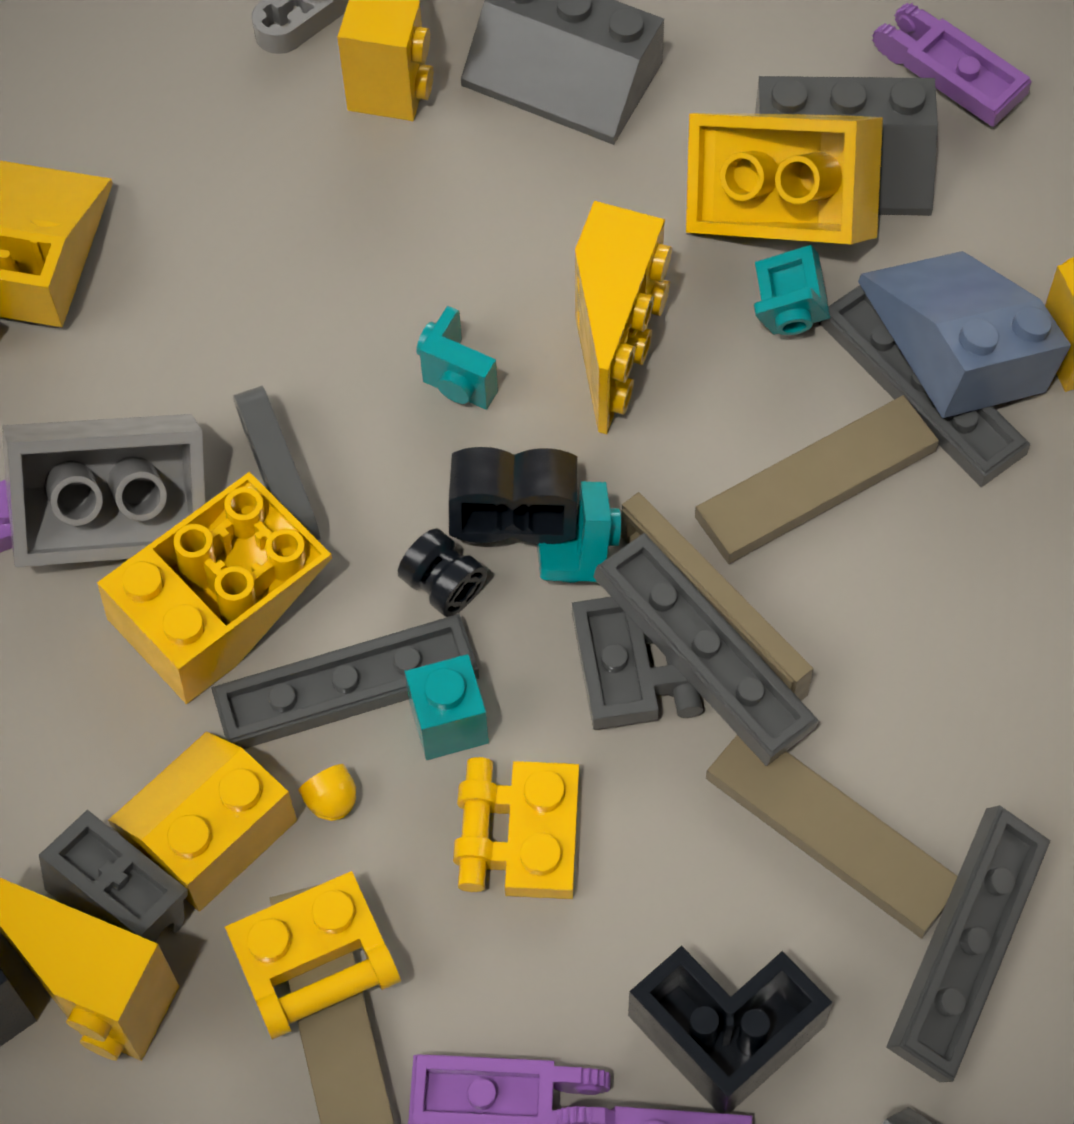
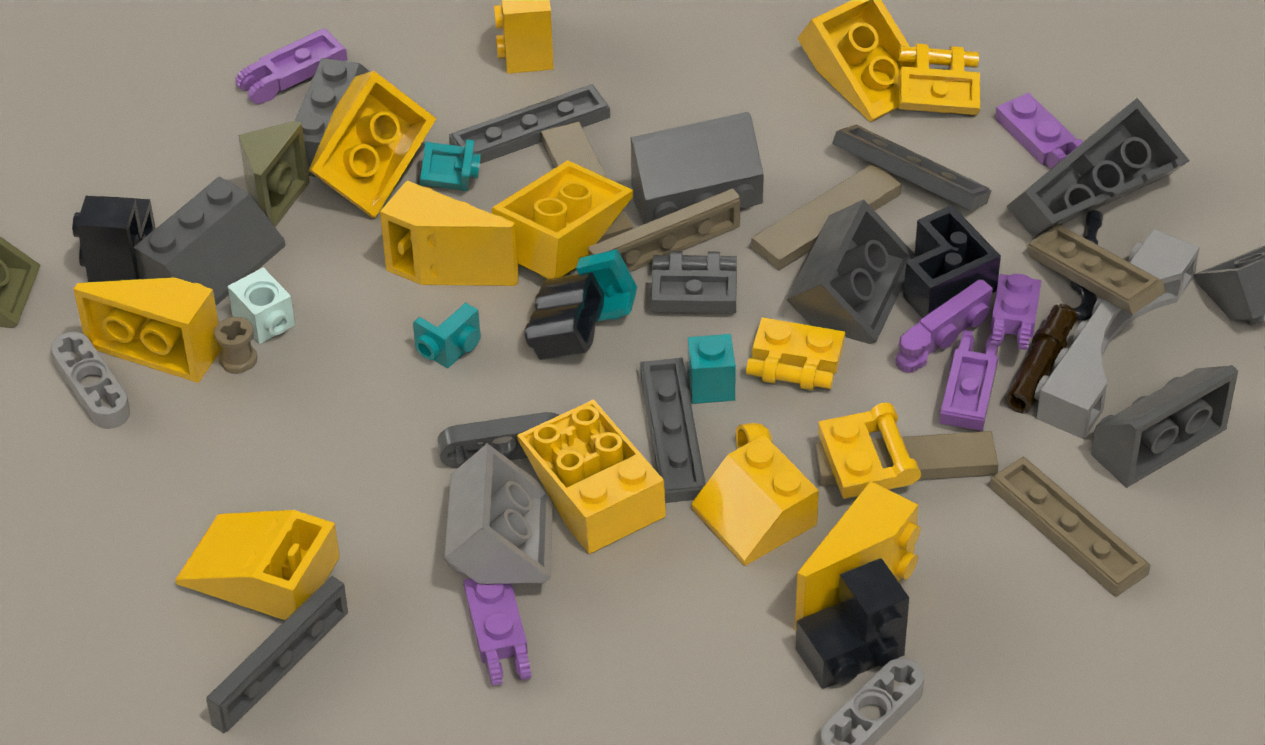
camera: 80 degrees left, 15 degrees down
(111, 879) = (790, 545): dark grey hinge -> none
(381, 118) = (235, 338): none -> dark tan bush
(442, 572) = (610, 362): black wheel -> none
(469, 135) = (263, 304): none -> light aqua brick
(604, 1036) = (943, 326): none -> medium lavender hinge
(688, 70) = (275, 167): none -> olive slope
(689, 878) = (852, 274): none -> dark grey slope
(705, 649) = (701, 240): dark grey tile -> none
(709, 447) = (562, 217): none -> yellow slope
(842, 614) = (695, 163): none -> slope
(967, 331) = (506, 87): sand blue slope -> none

